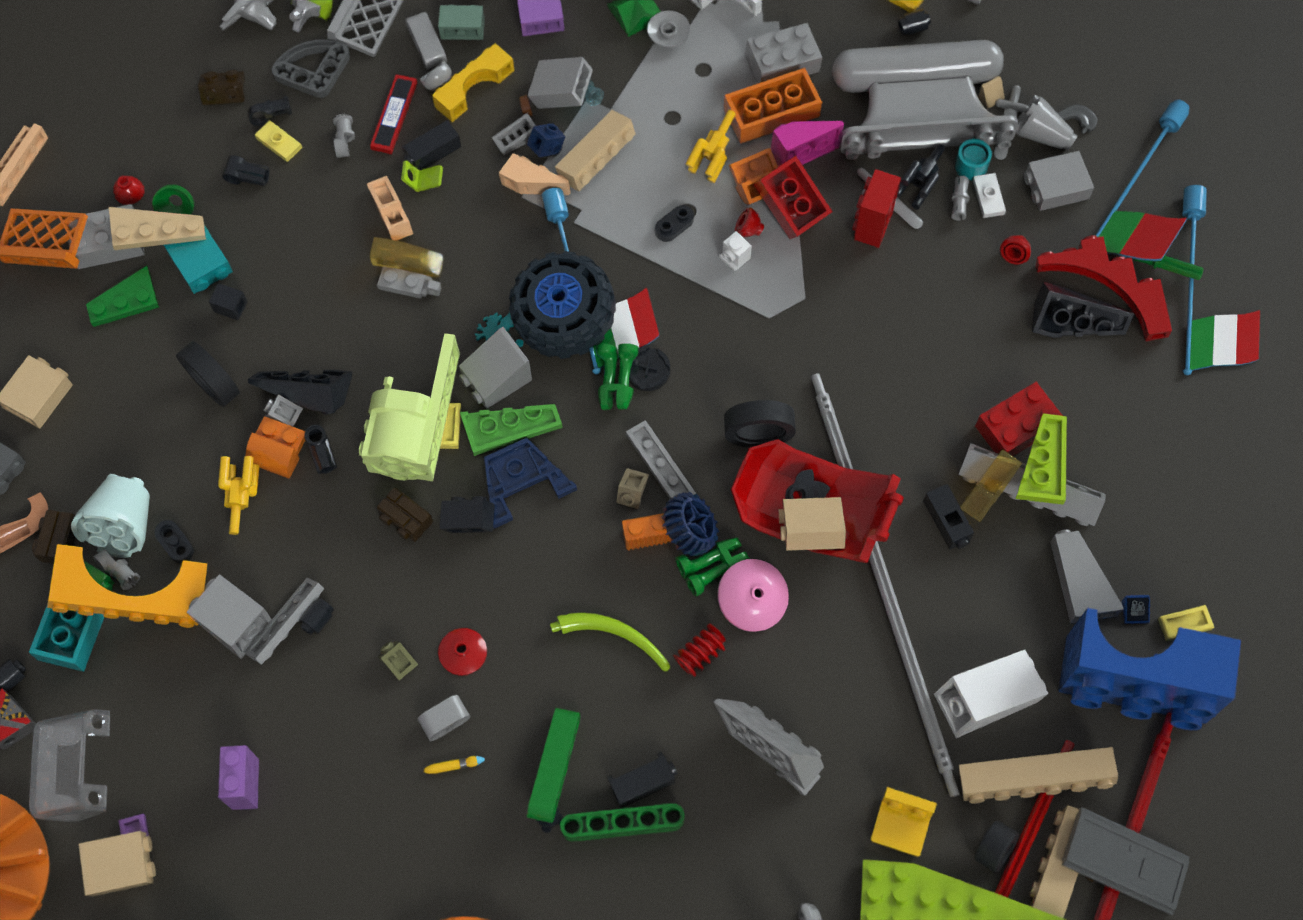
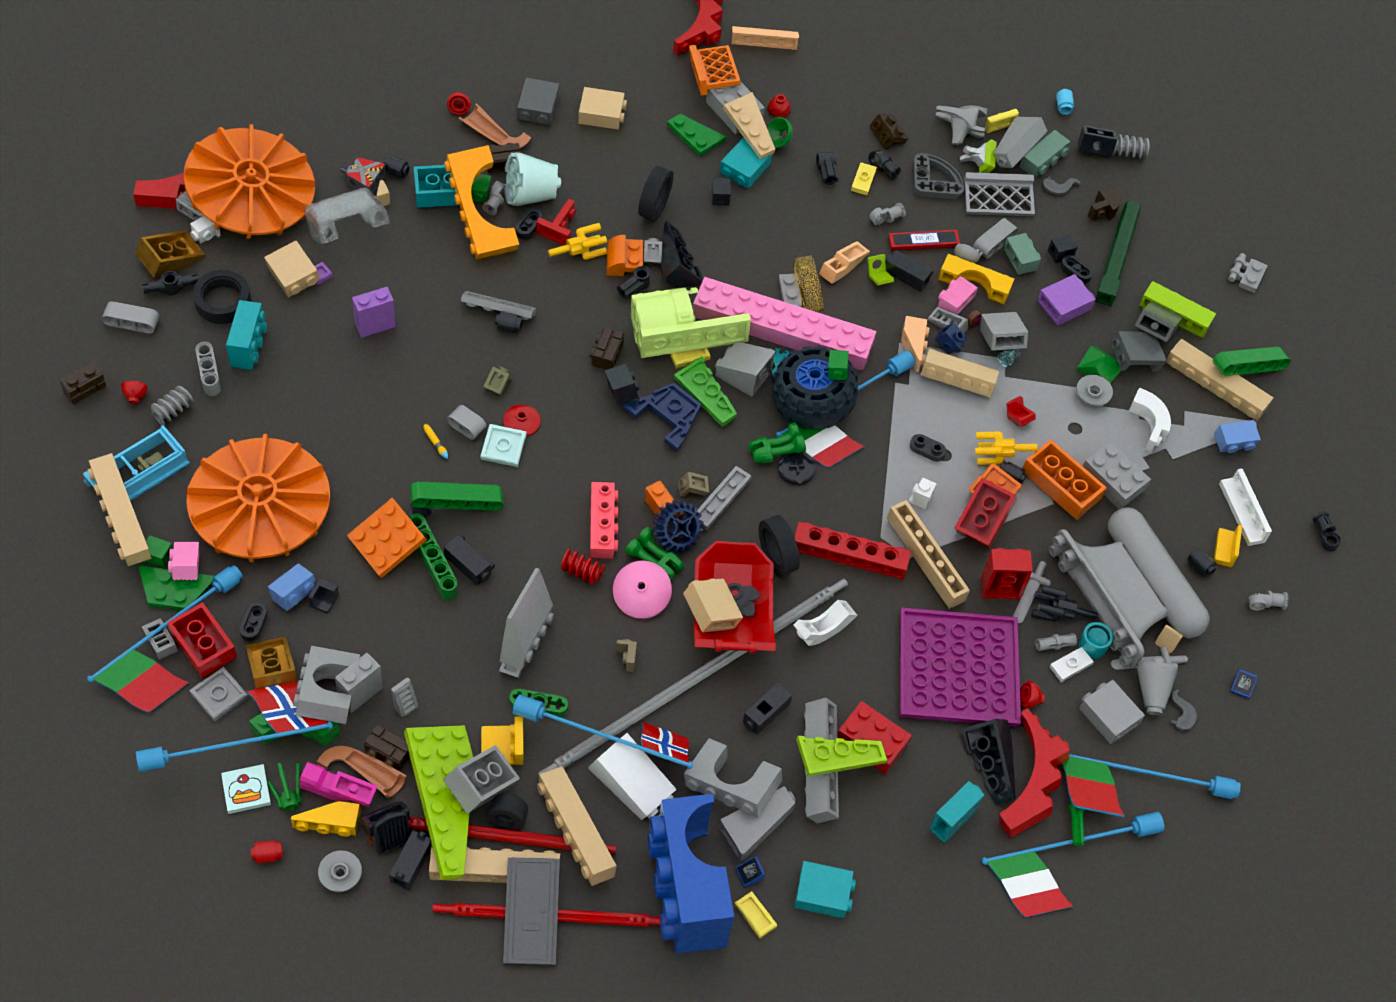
camera: 60 degrees right, 10 degrees down
(46, 706) = (383, 194): none -> tan slope
(201, 513) = (557, 229): none -> red bracket
(229, 615) = (485, 267): light grey slope -> none
(451, 304) = (784, 322): none -> bright pink brick
(488, 110) = (957, 296): none -> bright pink brick
(492, 685) = (503, 445): none -> light aqua tile
(563, 264) = (838, 365): none -> green brick
(579, 869) = (386, 537): none -> orange plate
(590, 621) = (577, 492): lime animal -> none
(643, 606) = (602, 520): none -> coral brick
(669, 113) = (1018, 412): none -> red bracket
(742, 150) = (1014, 471): none -> black brick
(749, 223) = (951, 496): red brick -> none
(805, 140) = (1040, 508): dark pink slope -> none
(810, 307) = (856, 558): none -> red brick
(817, 276) = (928, 554): none -> tan brick
(836, 640) = (628, 649): none -> dark tan bracket
(855, 754) = (555, 699): none -> green beam
(865, 415) = (826, 624): none -> white arch
(956, 862) = (481, 779): none -> light grey brick
(958, 304) = (959, 667): none -> magenta plate
(962, 642) = (653, 739): none -> flag
(990, 485) = (802, 724): clear yellow slope -> none
(1017, 614) = (749, 796): none -> light grey arch
(1063, 48) = (1244, 683): none -> slope
(1135, 373) = (957, 811): none -> teal brick
(1180, 541) = (824, 889): none -> teal brick

